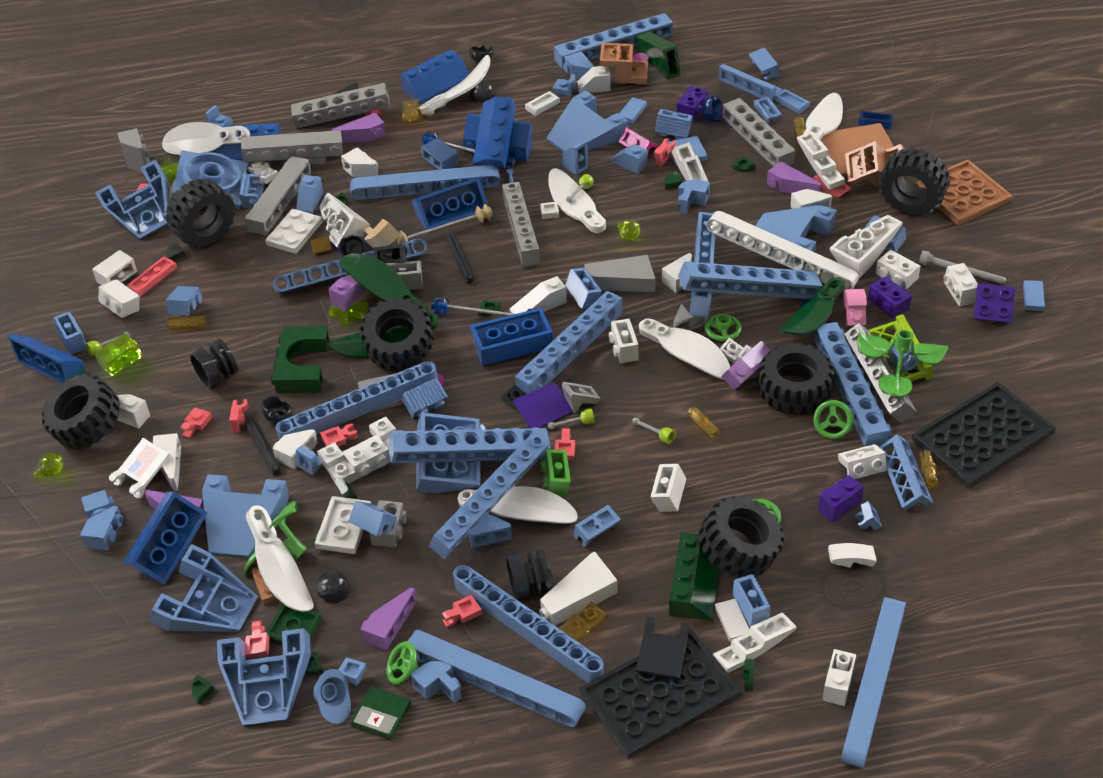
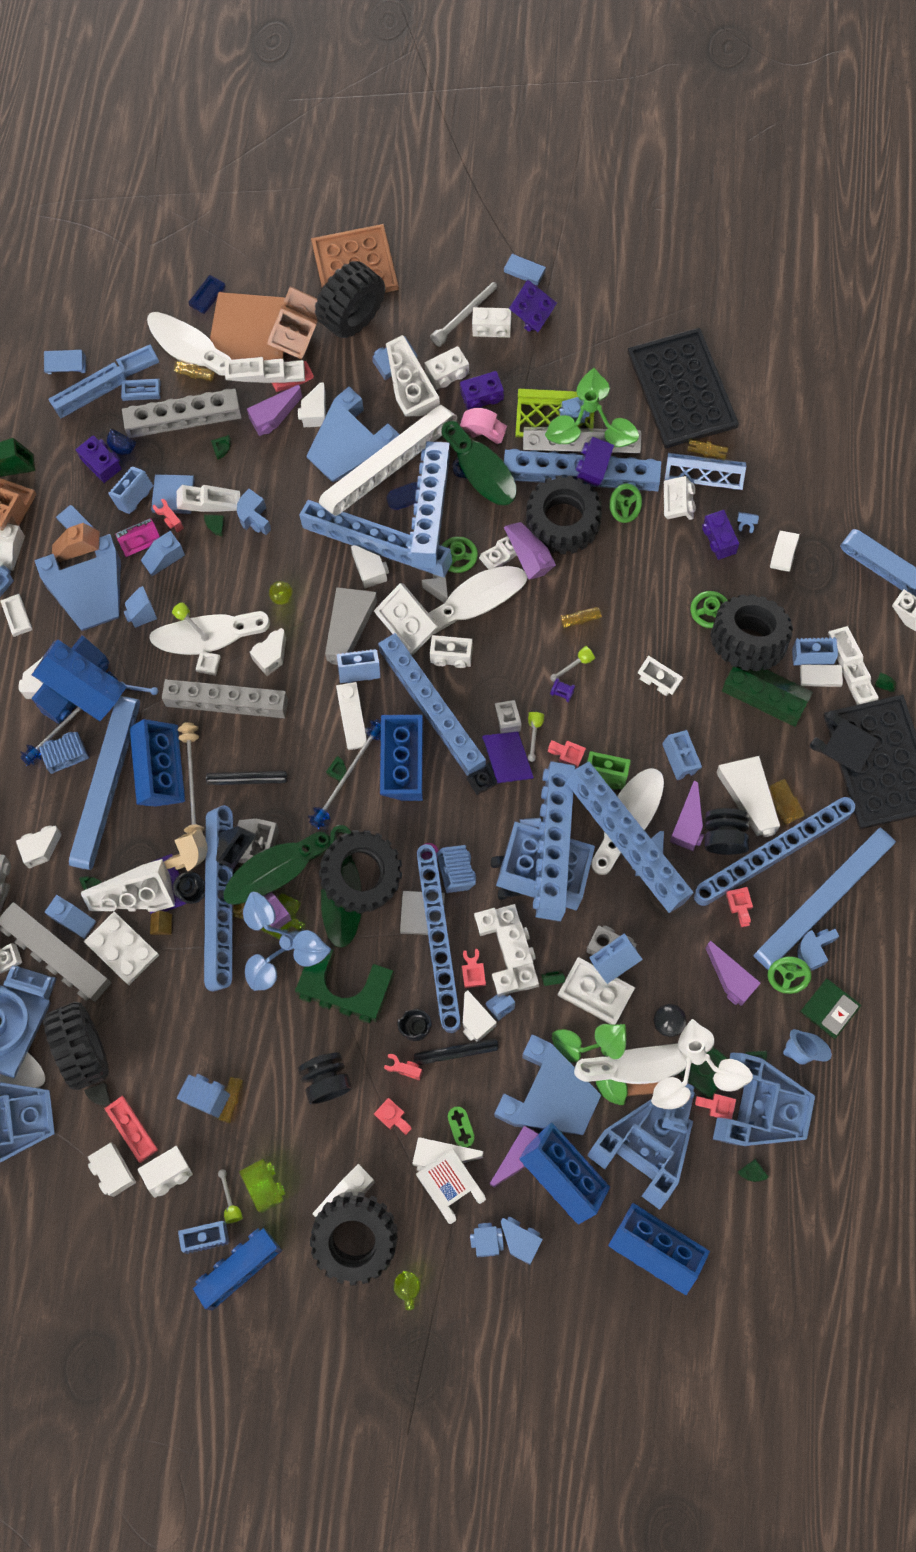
camera: 70 degrees left, 25 degrees up
(112, 630) = (659, 1249): none -> blue slope
(196, 467) = (465, 1125): none -> bright green beam
(247, 607) = (678, 1118): none -> medium blue hinge
(256, 591) = (695, 1043): none -> white plant
(324, 310) = (307, 945): none -> medium blue plant
(353, 670) = (784, 1022): medium blue tile -> none
(552, 545) = (689, 825): none -> medium lavender slope
(574, 239) = (270, 653): none -> white slope
(611, 103) = (76, 542): none -> nougat slope
(624, 424) = (562, 690): none -> dark purple bush
(643, 305) = (406, 618): none -> white plate
(855, 375) = (594, 461): none -> dark purple brick

